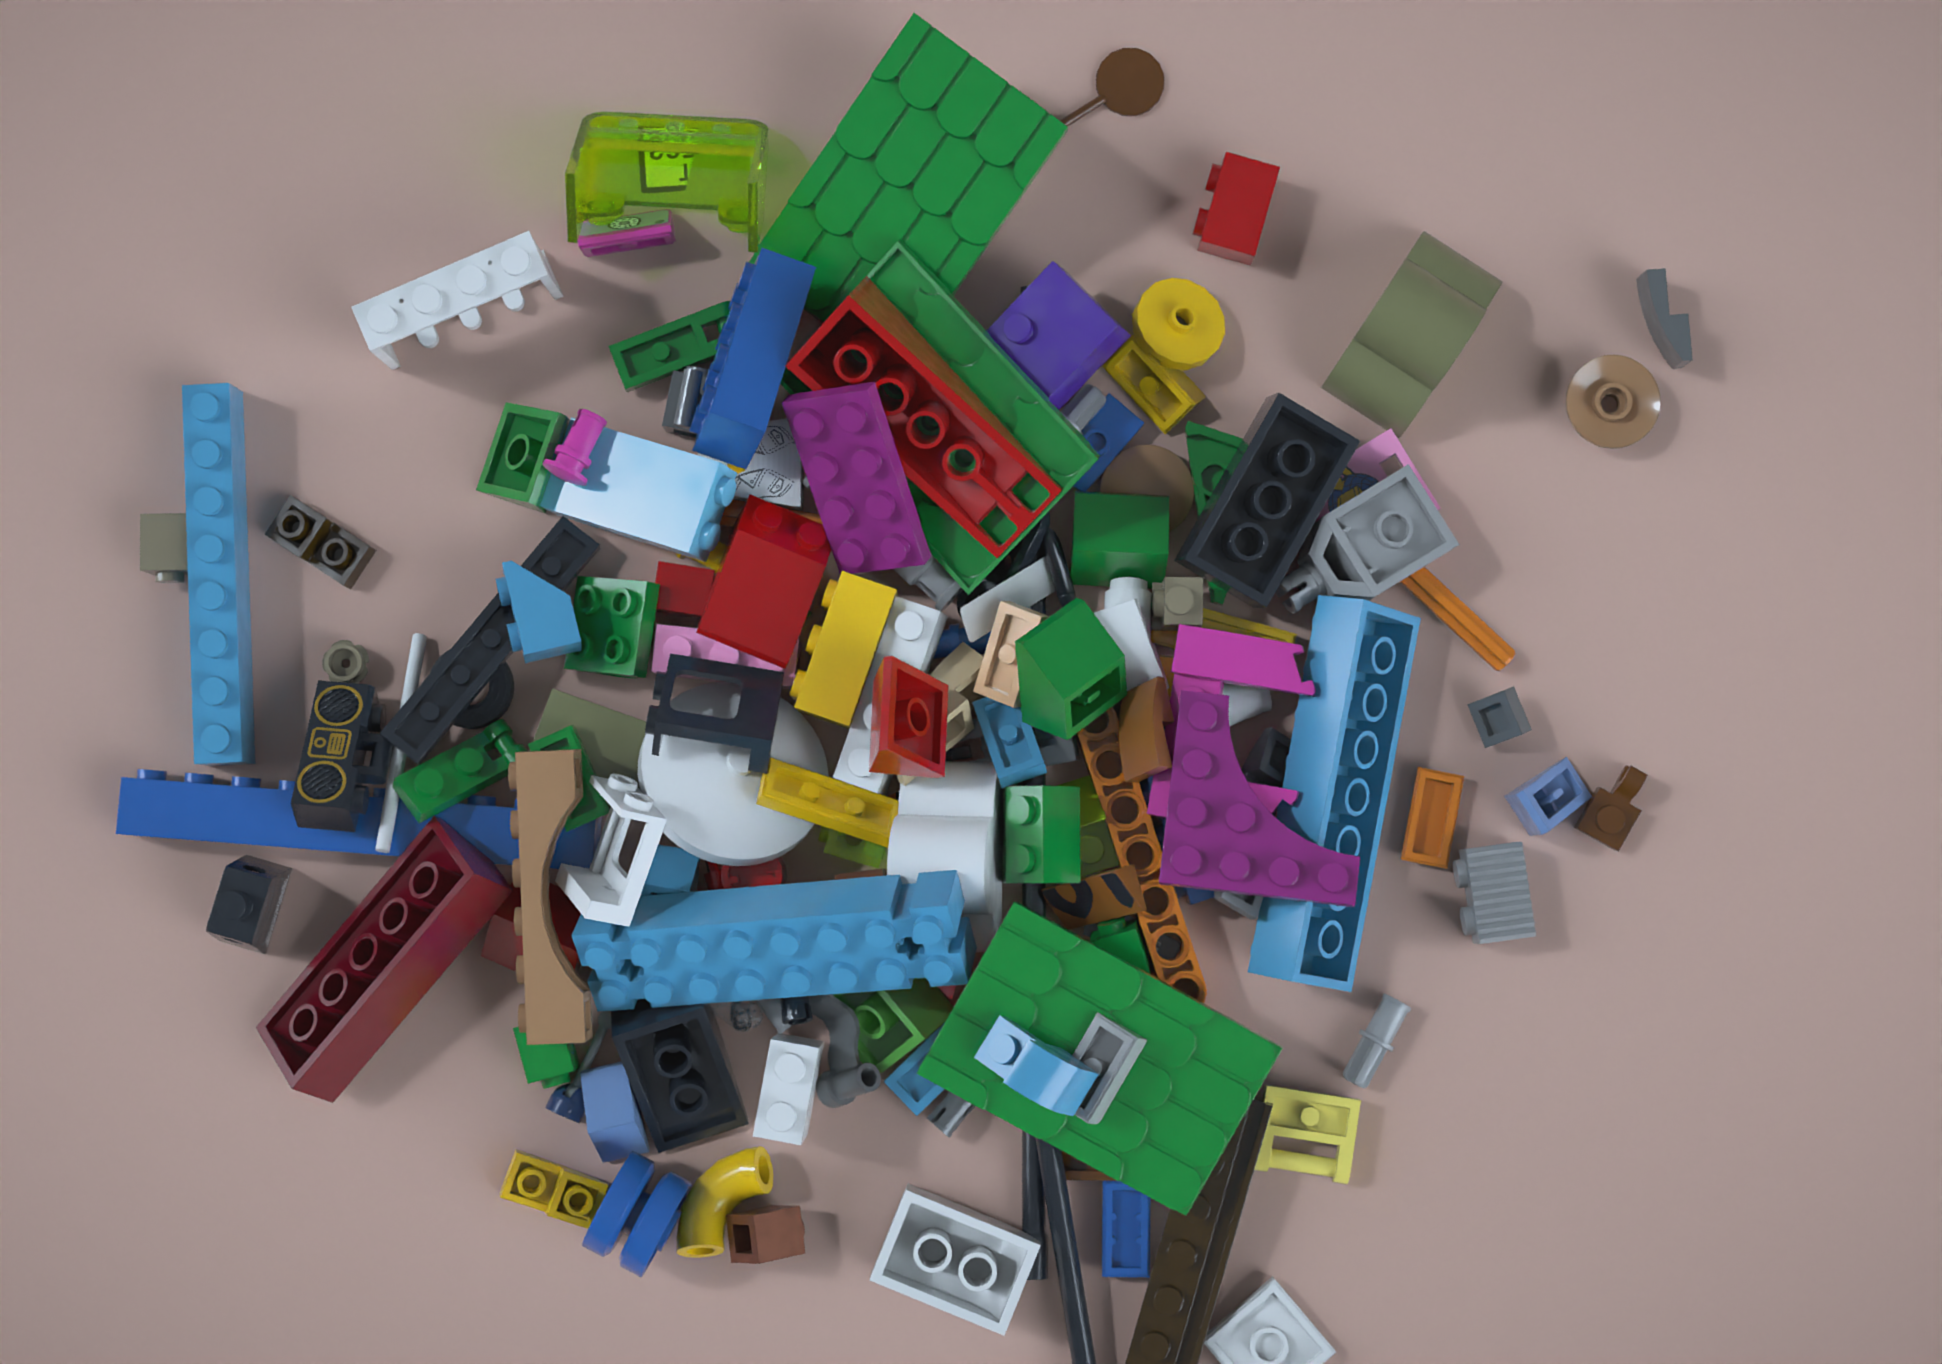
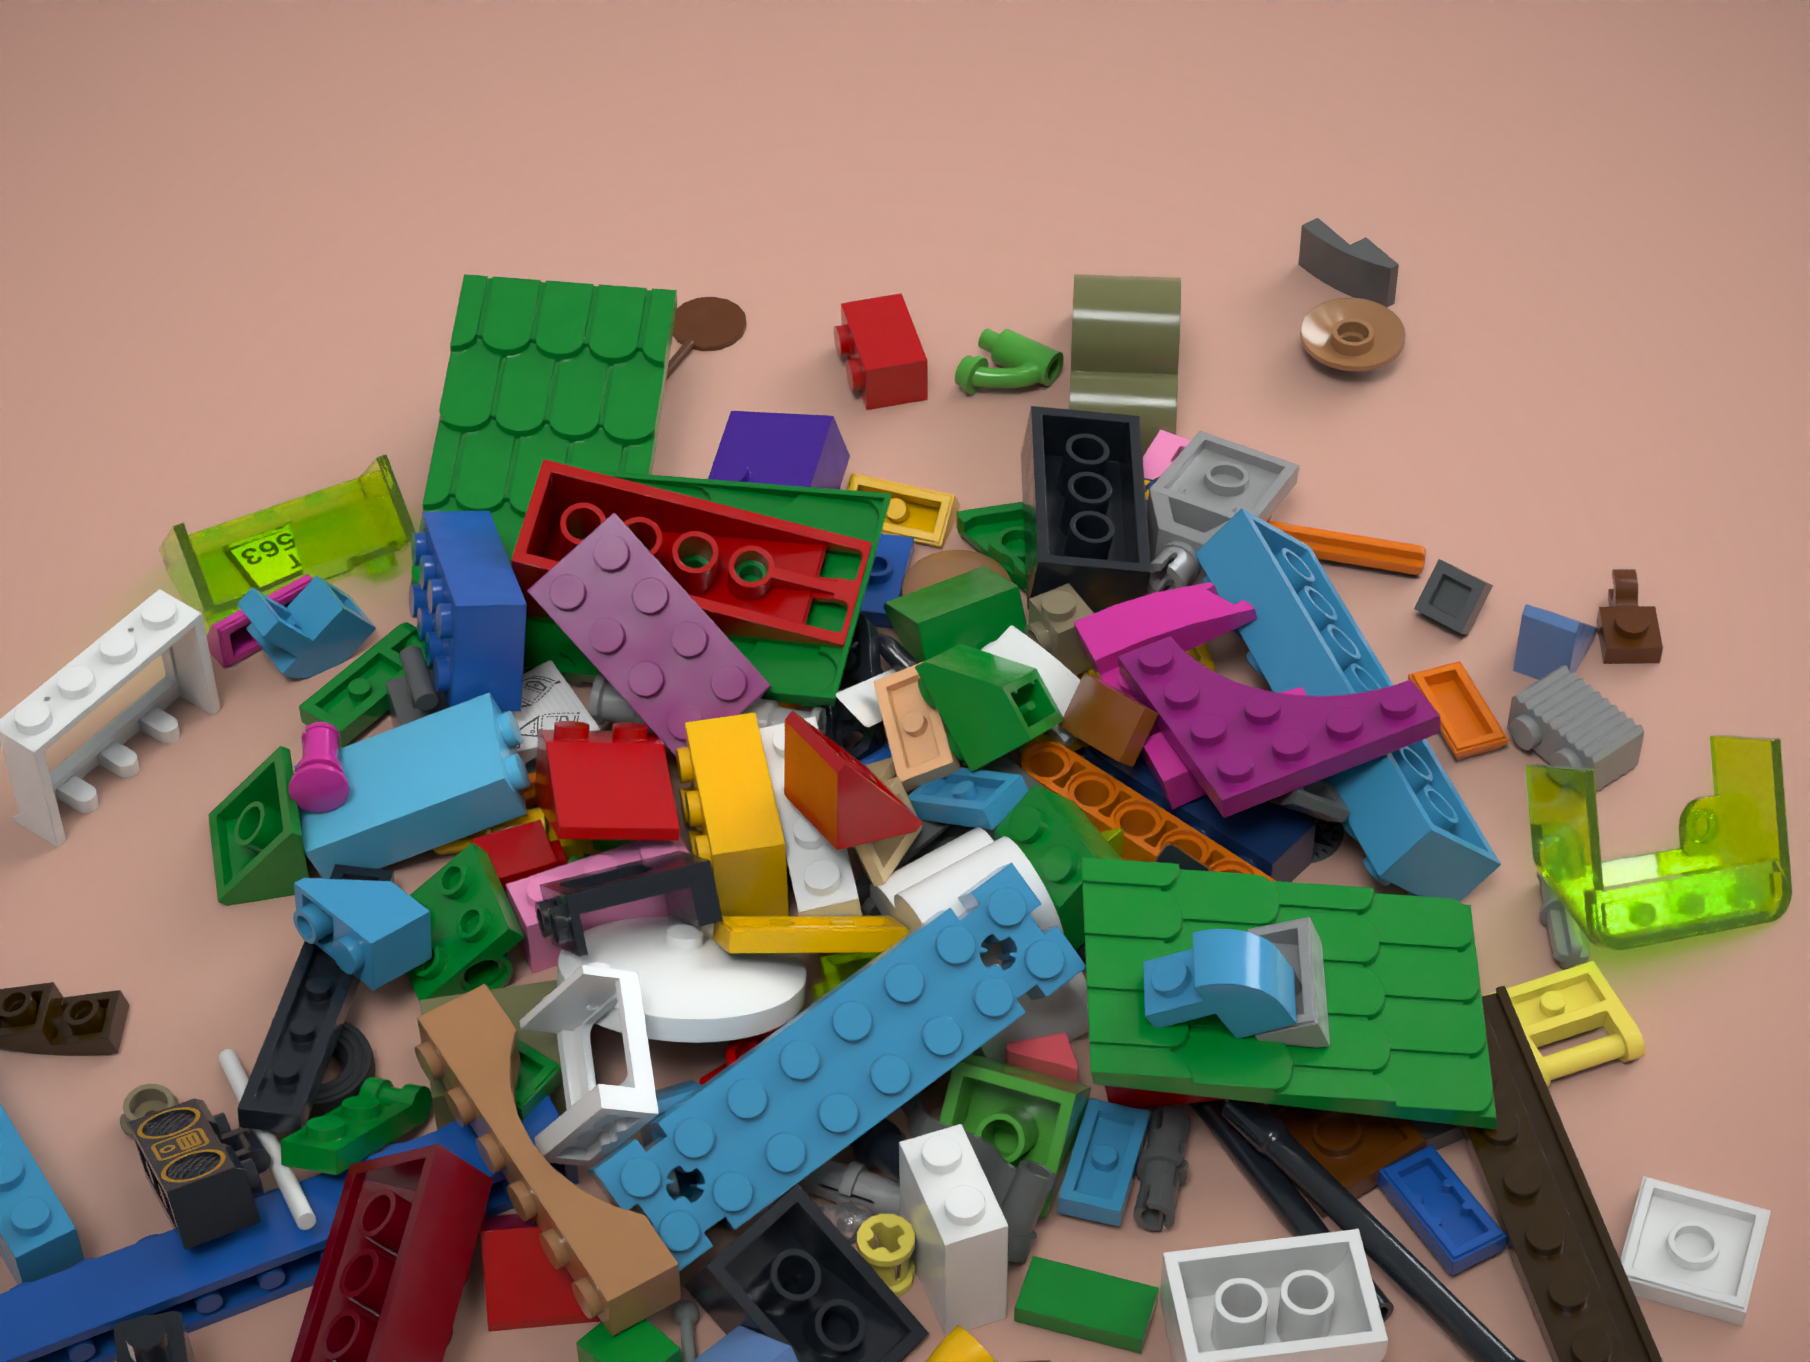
camera: 30 degrees left, 40 degrees down
(649, 271) = (312, 633): none -> dark azure brick
(740, 1071) = (893, 1248): none -> light yellow bush
(859, 1161) = (1086, 1304): none -> green tile
(1167, 339) = (893, 447): yellow plate -> none
(1344, 268) = (1023, 358): none -> bright green plant
(1468, 1073) = (1720, 879): none -> clear neon green windscreen

